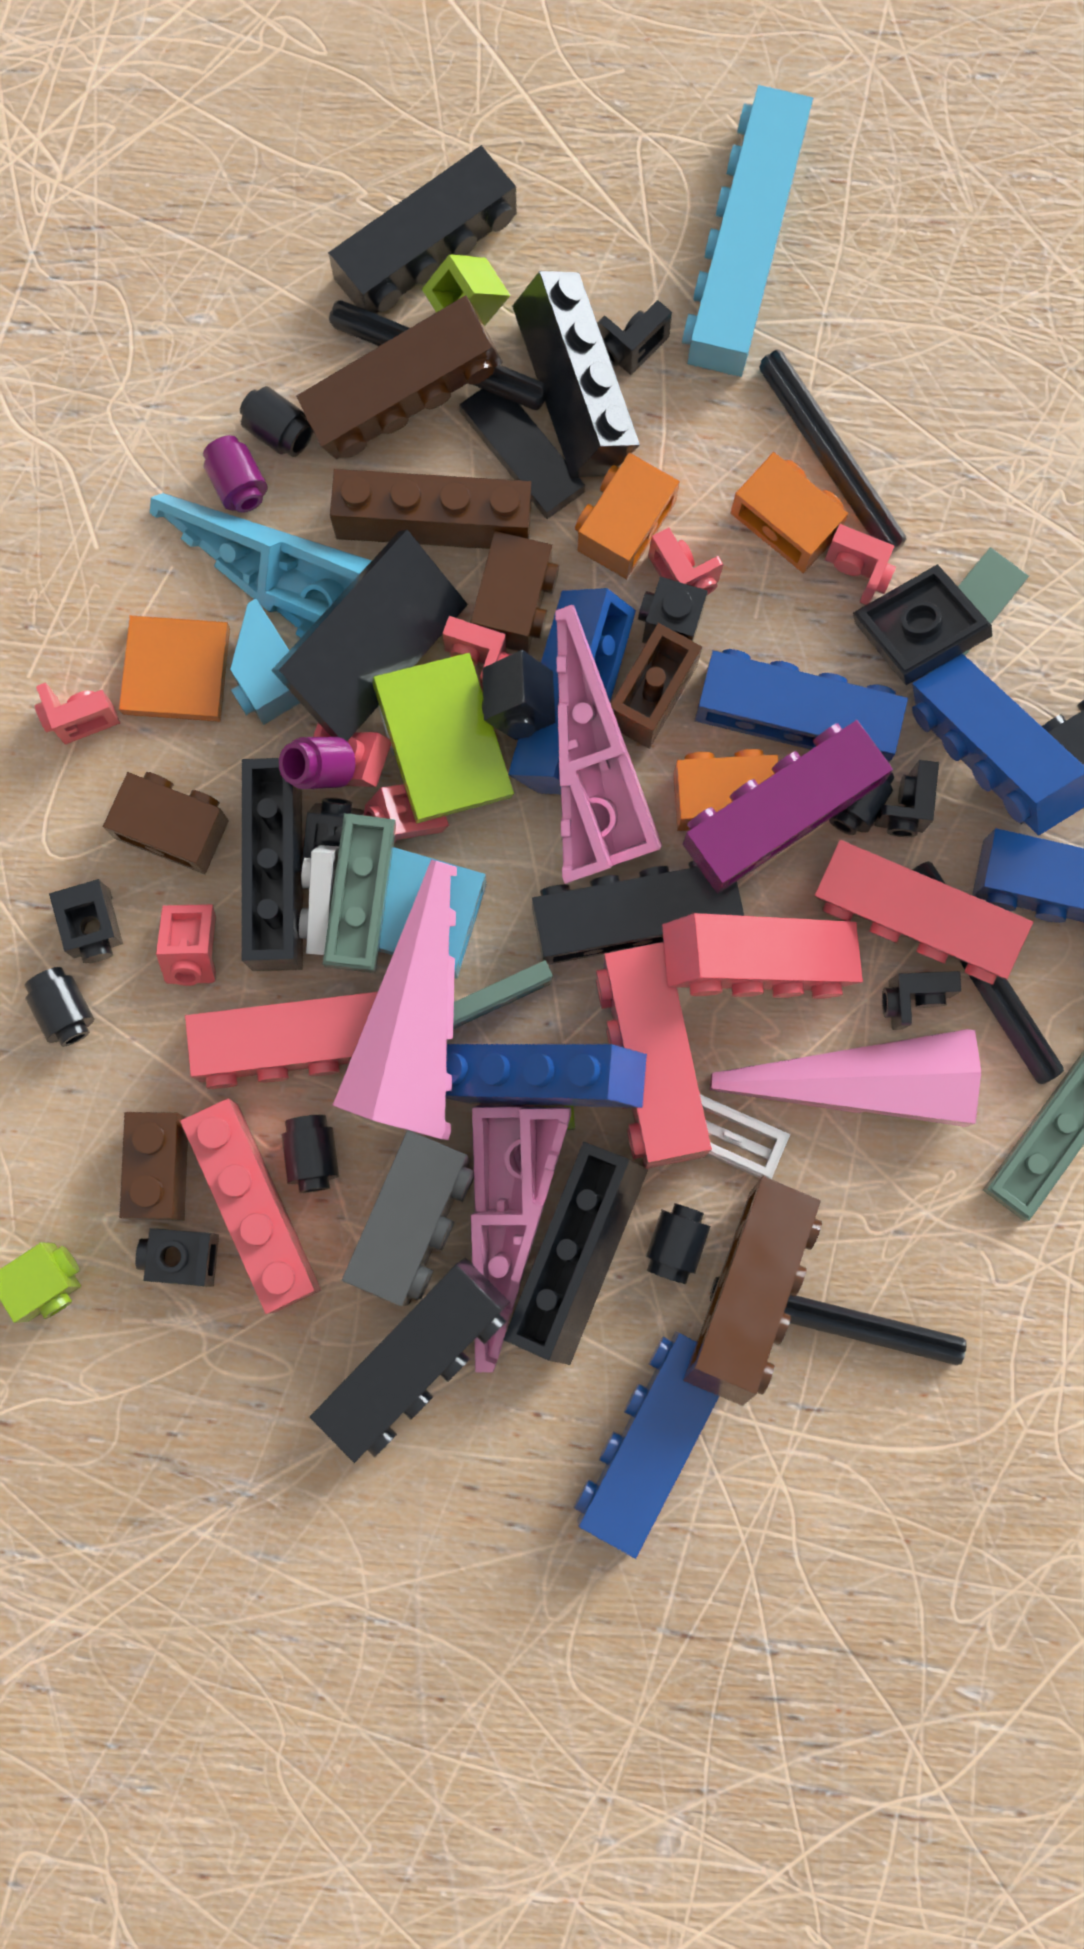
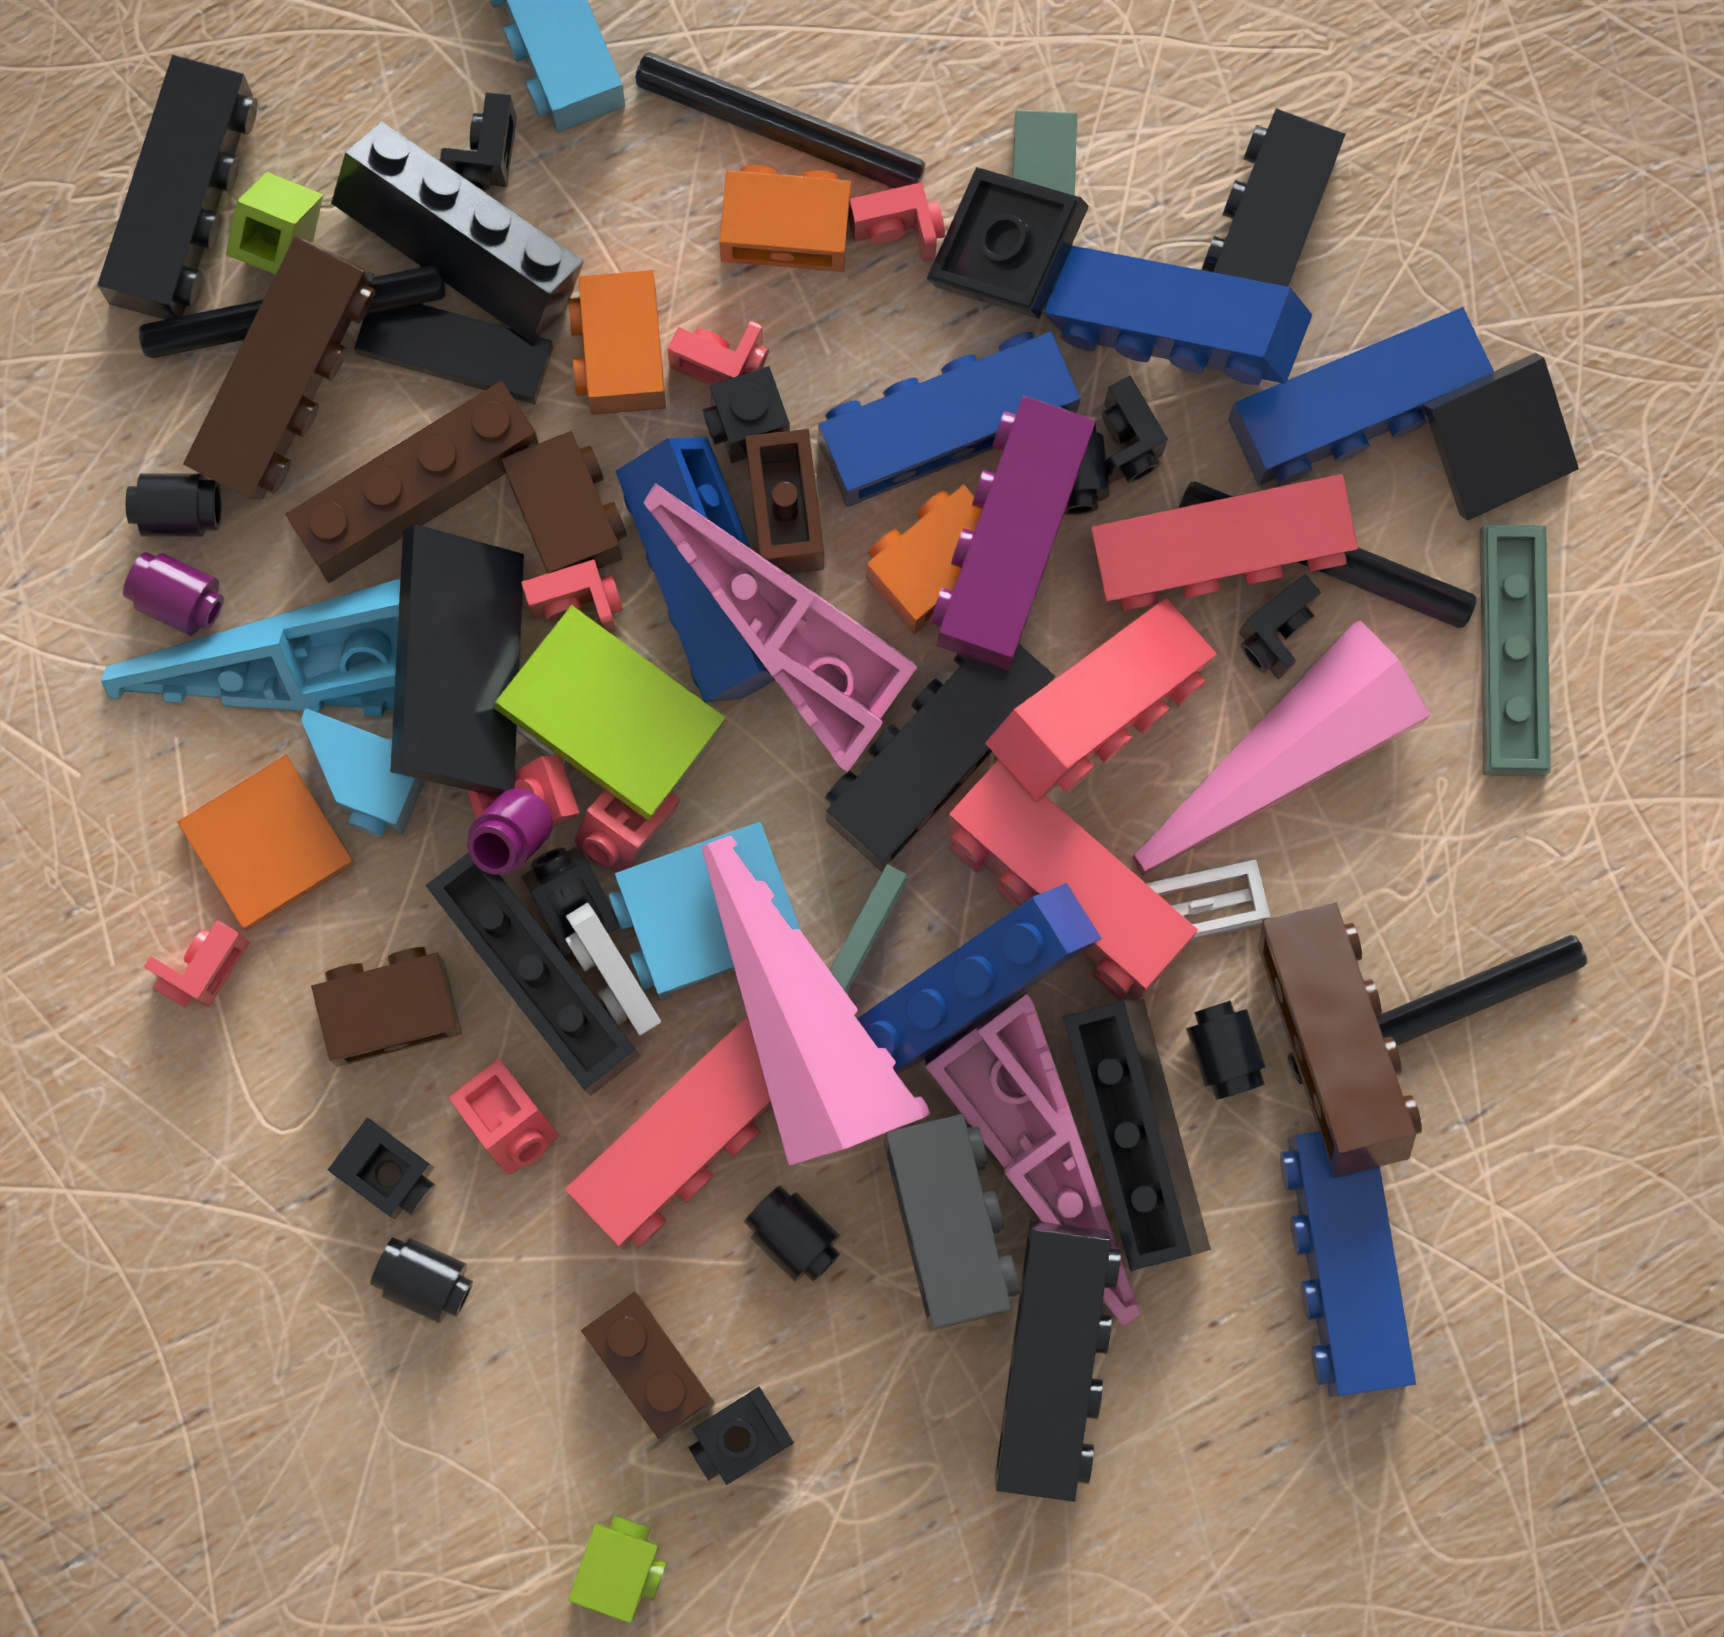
camera: 40 degrees left, 0 degrees up
(250, 1206) = (776, 1330): coral brick -> none
(359, 893) = (649, 933): sand green tile -> none
(518, 695) = (658, 614): black brick -> none

